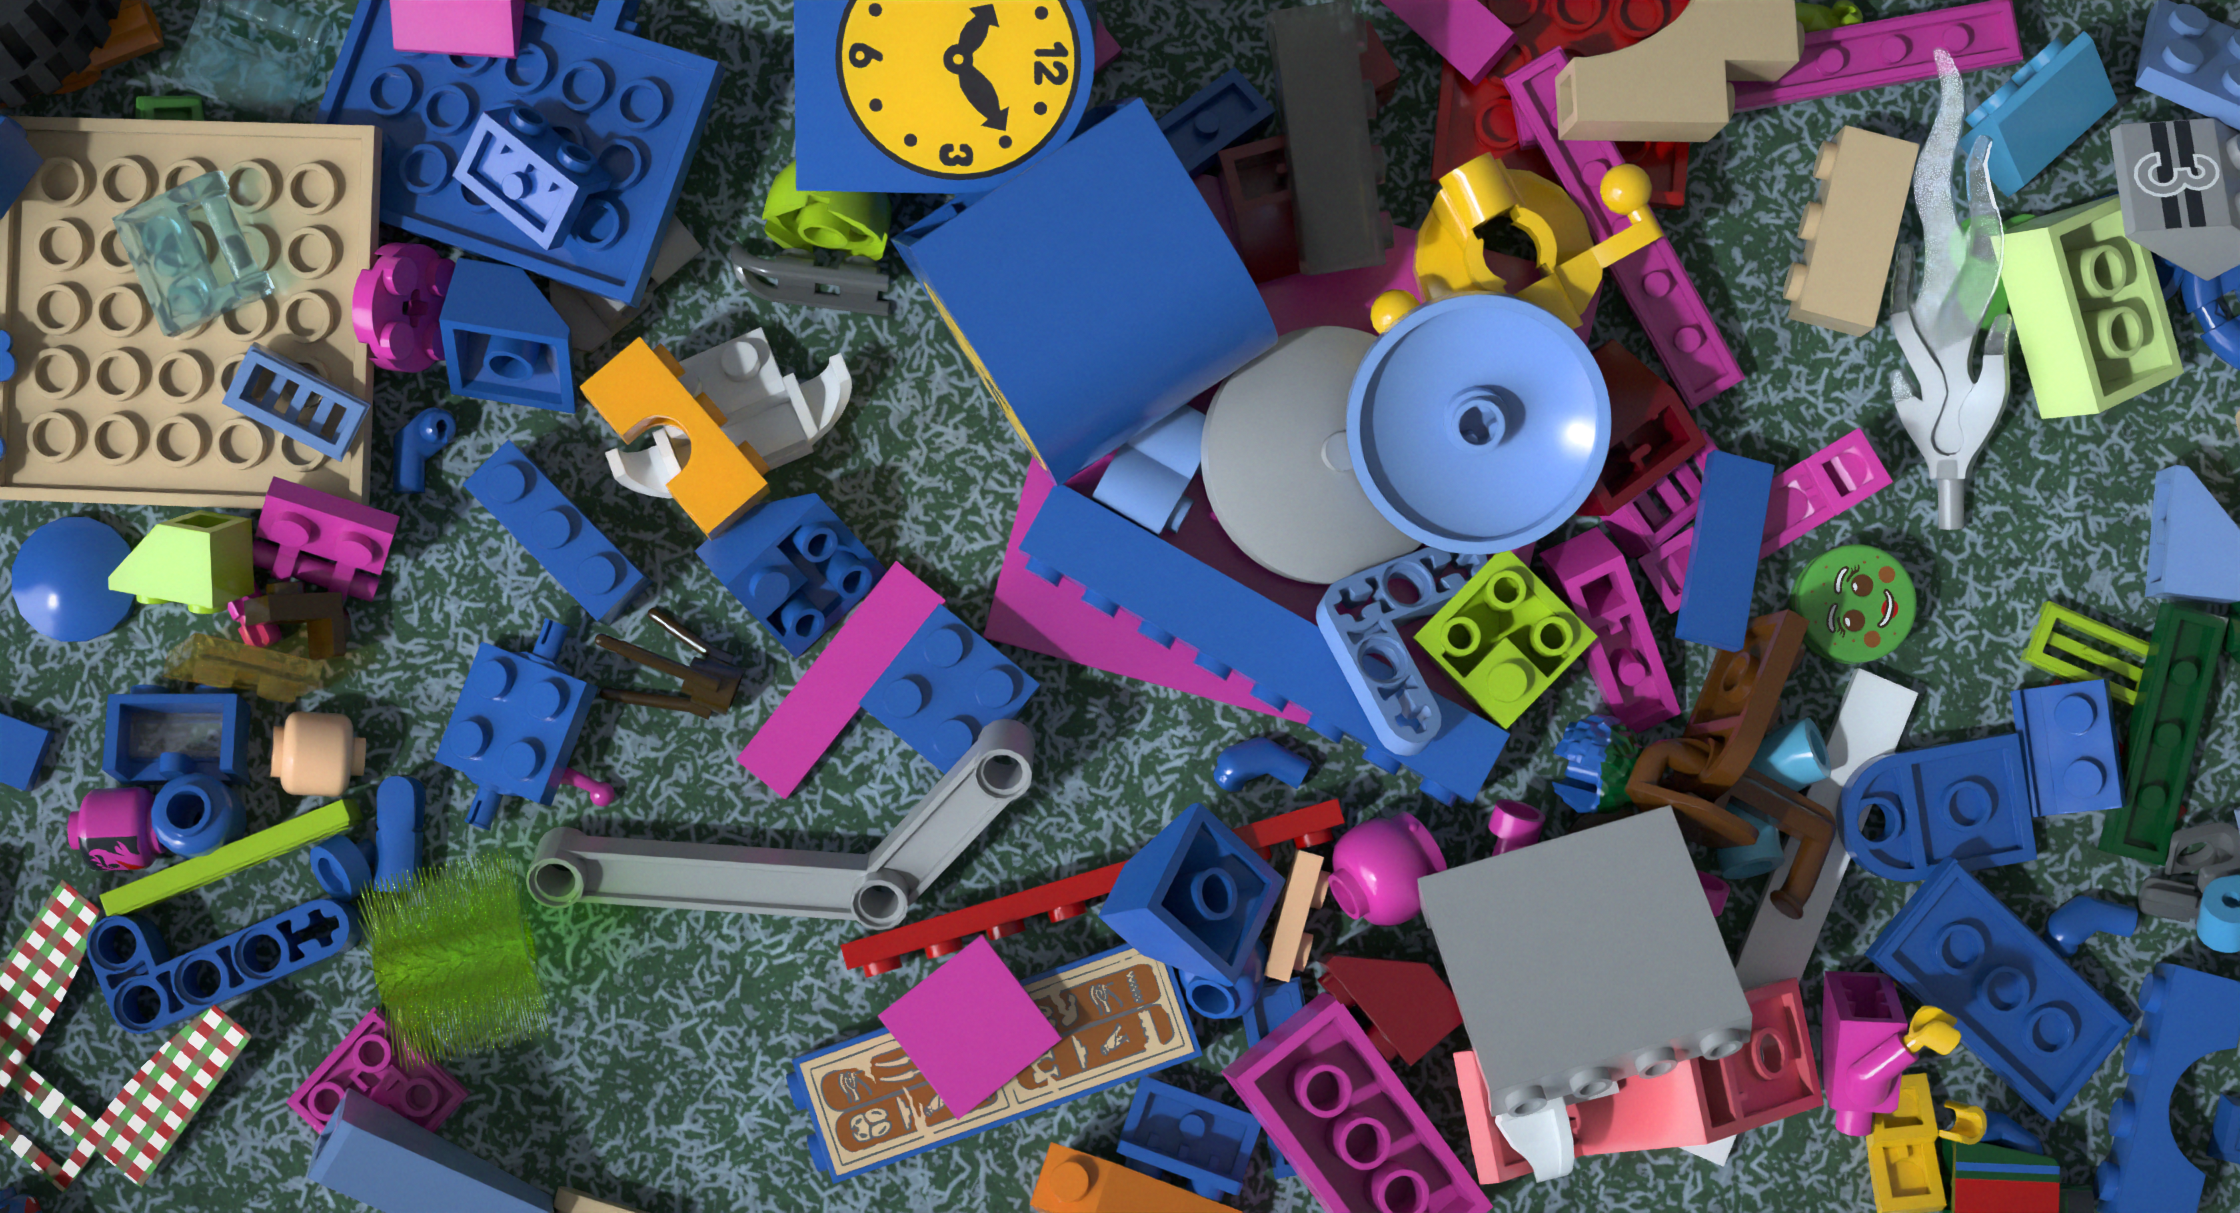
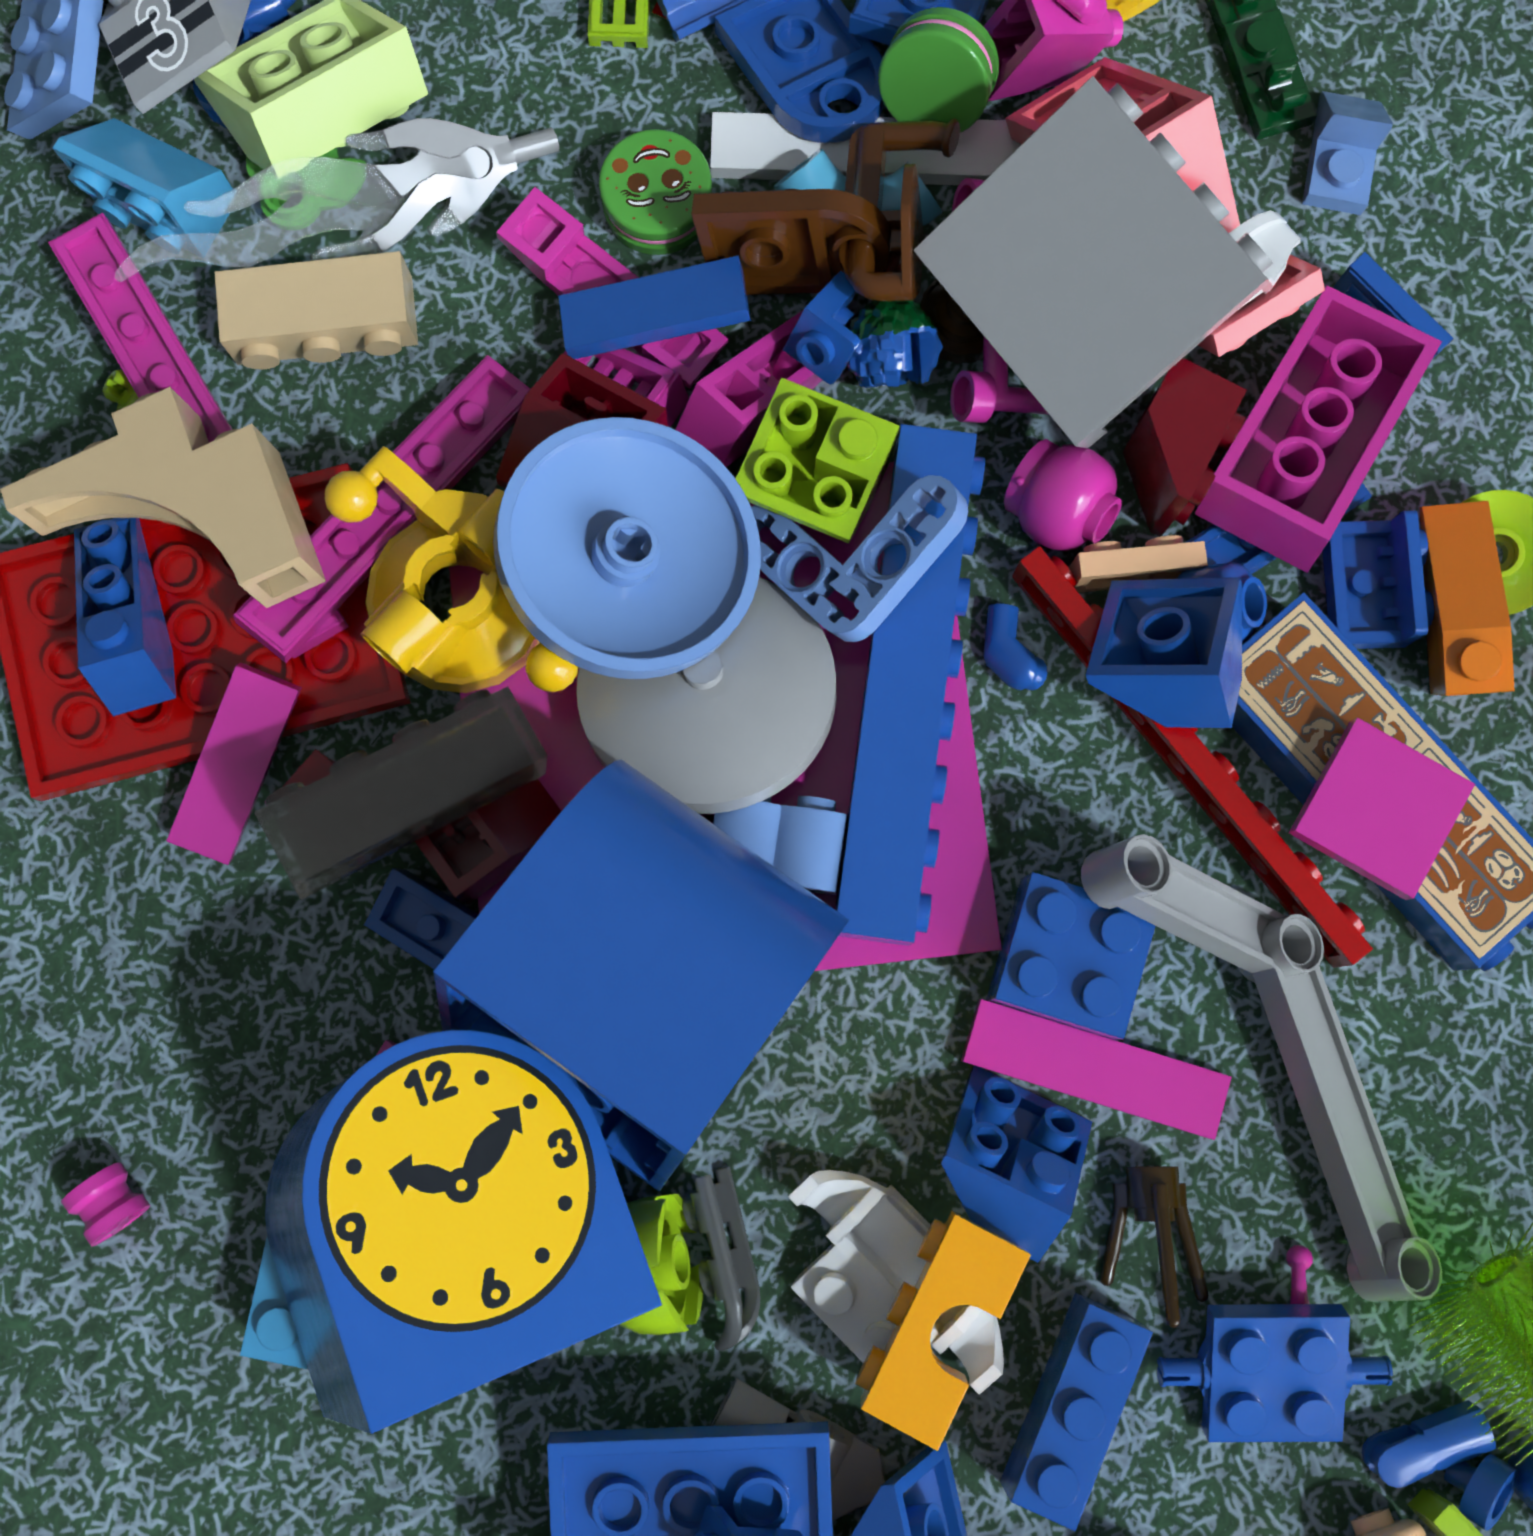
camera: 110 degrees left, 5 degrees down
(1636, 696) = (822, 332): none -> blue bracket
(1861, 921) = (939, 68): none -> bright green head

